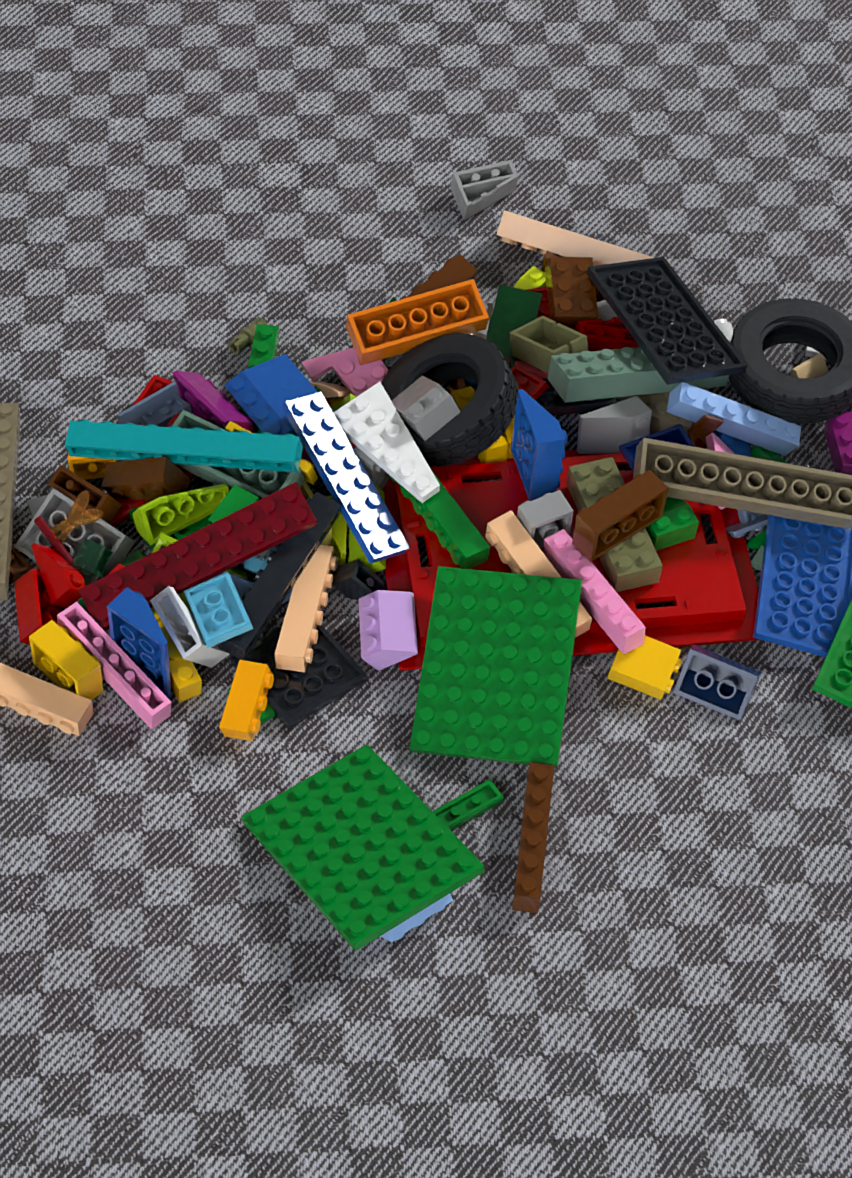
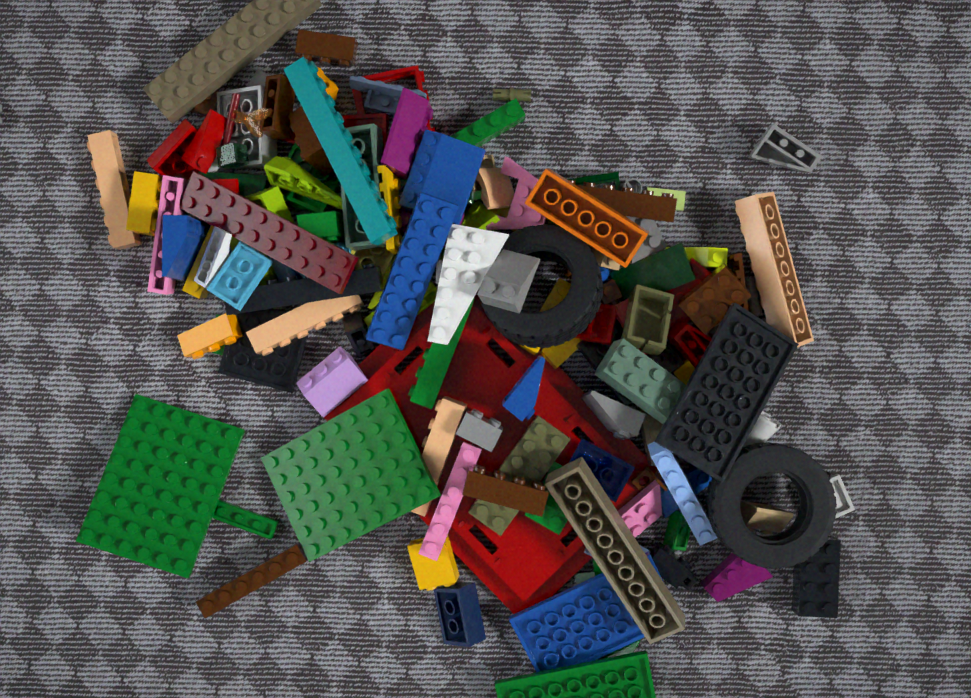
camera: 55 degrees right, 35 degrees up
(49, 443) = (326, 48): none -> reddish brown brick

